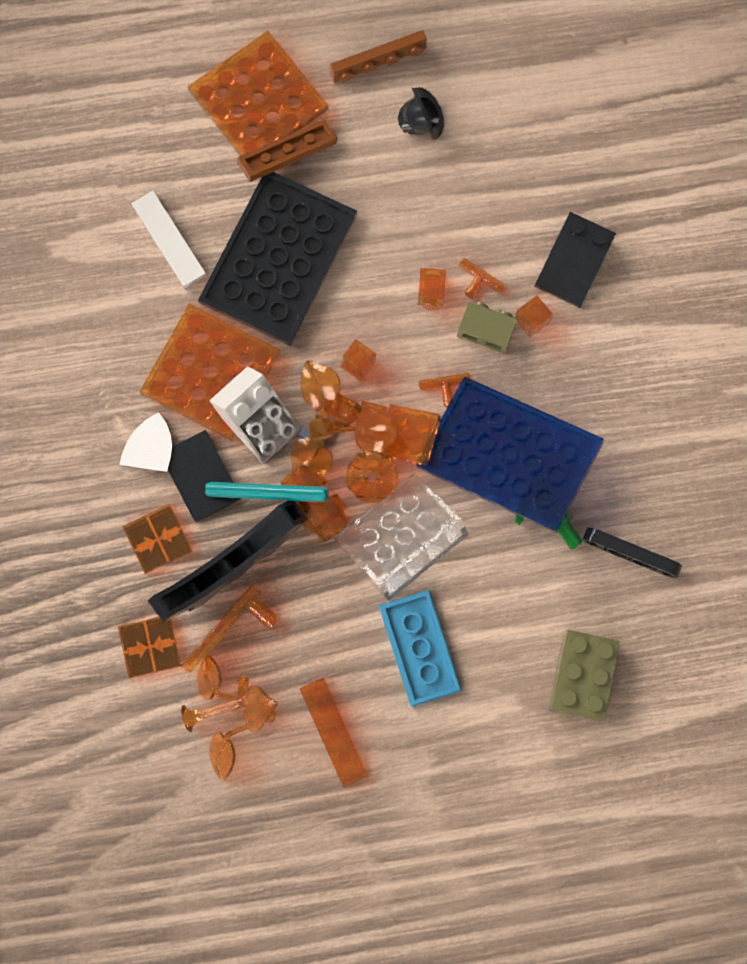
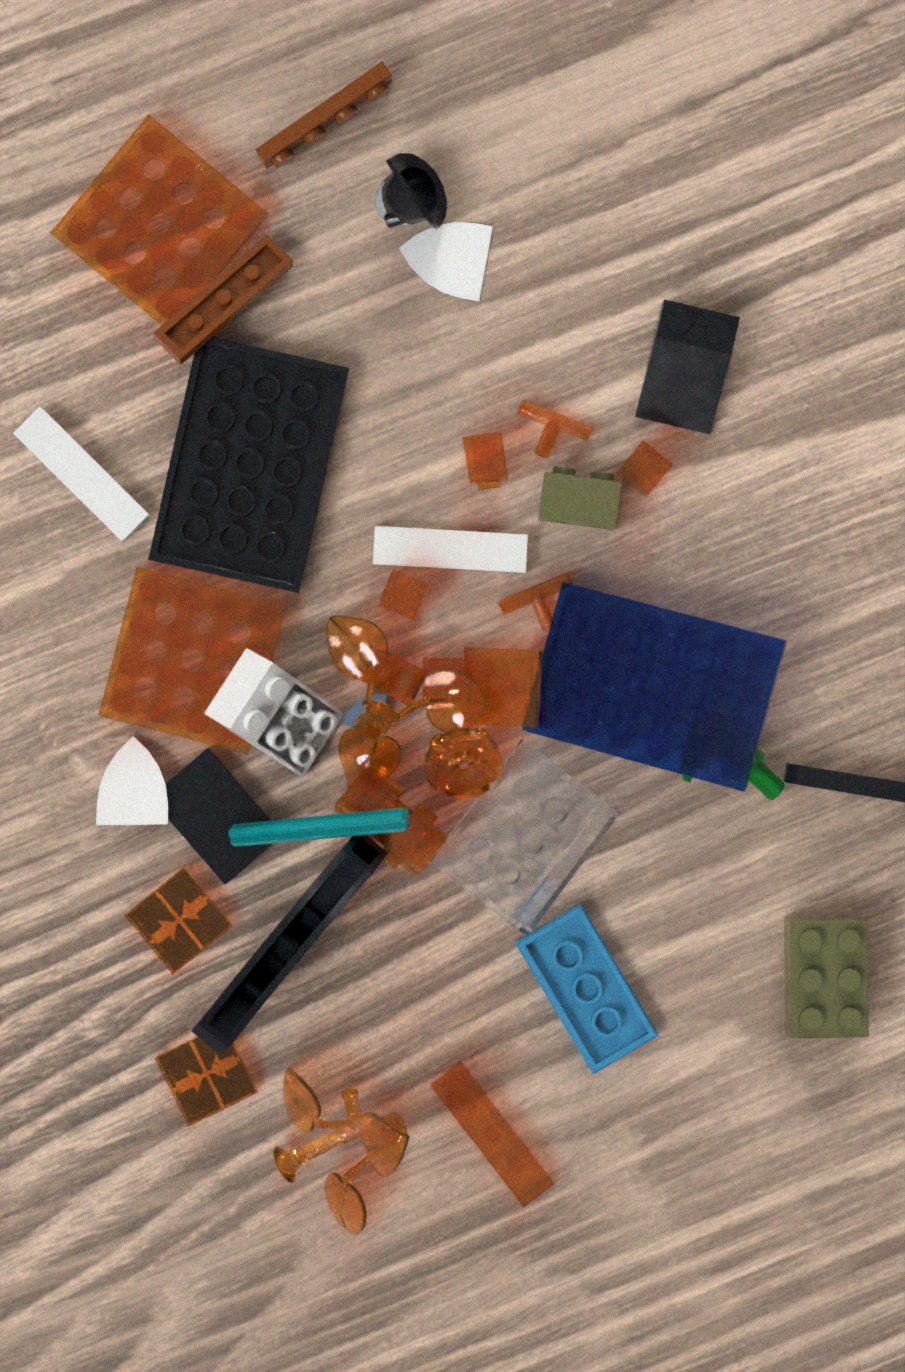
camera: 10 degrees left, 10 degrees up
(246, 601) = (326, 983): clear orange piece -> none
(395, 340) = (450, 549): none -> white tile
(438, 162) = (451, 257): none -> white sticker

